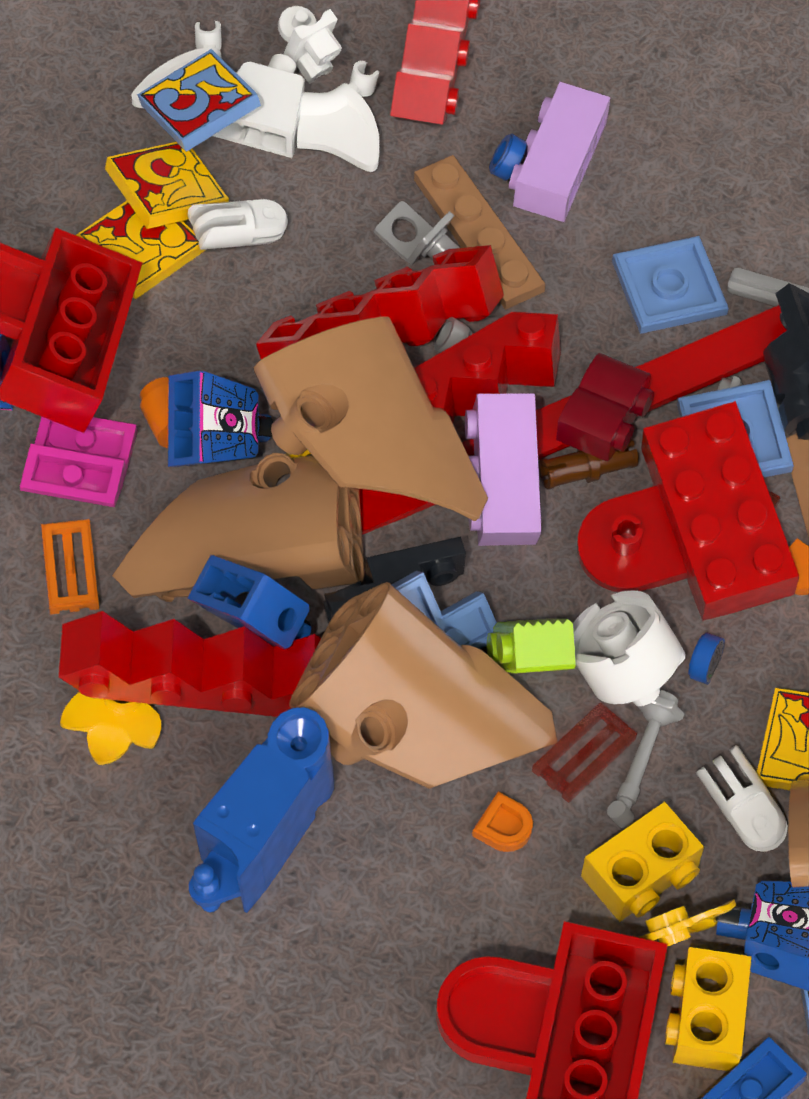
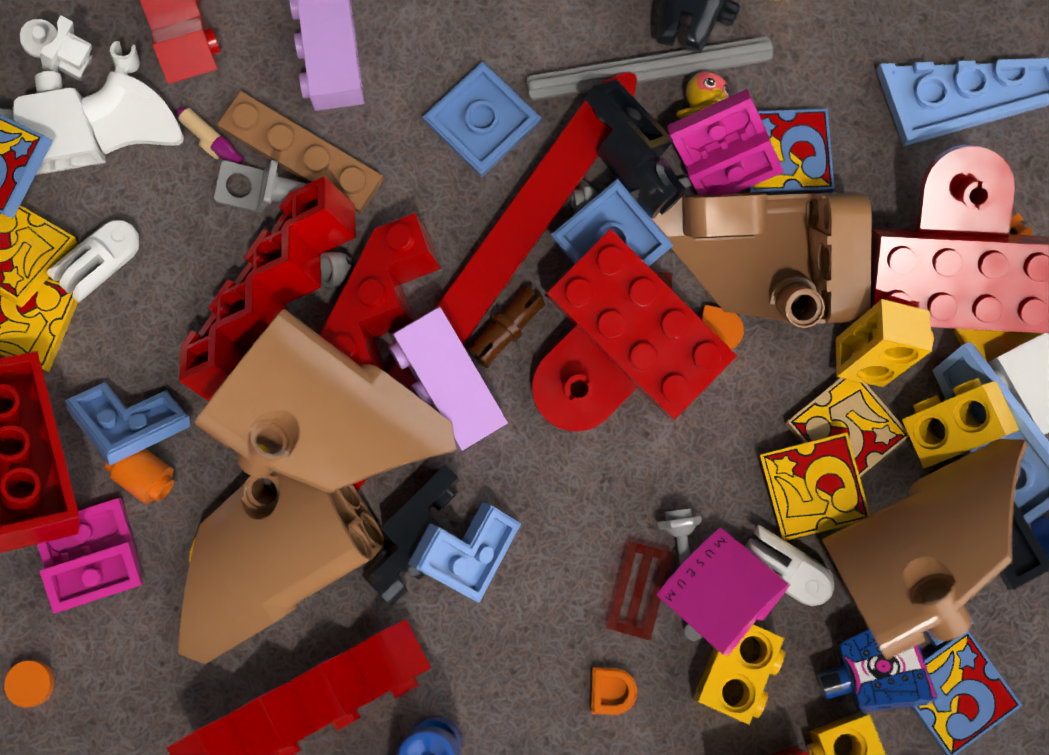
camera: 30 degrees left, 20 degrees up
(73, 601) = (152, 648): orange tile -> none
(168, 353) = (122, 430): none -> medium blue tile
(213, 420) = (182, 475): blue torso -> none
(267, 610) = (312, 637): blue torso -> none
(400, 181) = (210, 140): none -> piece
(414, 696) = (486, 639): medium nougat panel -> none
(507, 154) = (287, 69): blue tile -> none
(532, 645) = (557, 536): lime brick -> none
(604, 407) = (497, 278): dark red brick -> none
(626, 649) = (631, 496): white brick -> none
(667, 774) = (723, 590): none -> dark pink slope
(677, 926) = (800, 723): yellow plate -> none
(706, 658) = (691, 456): blue tile -> none

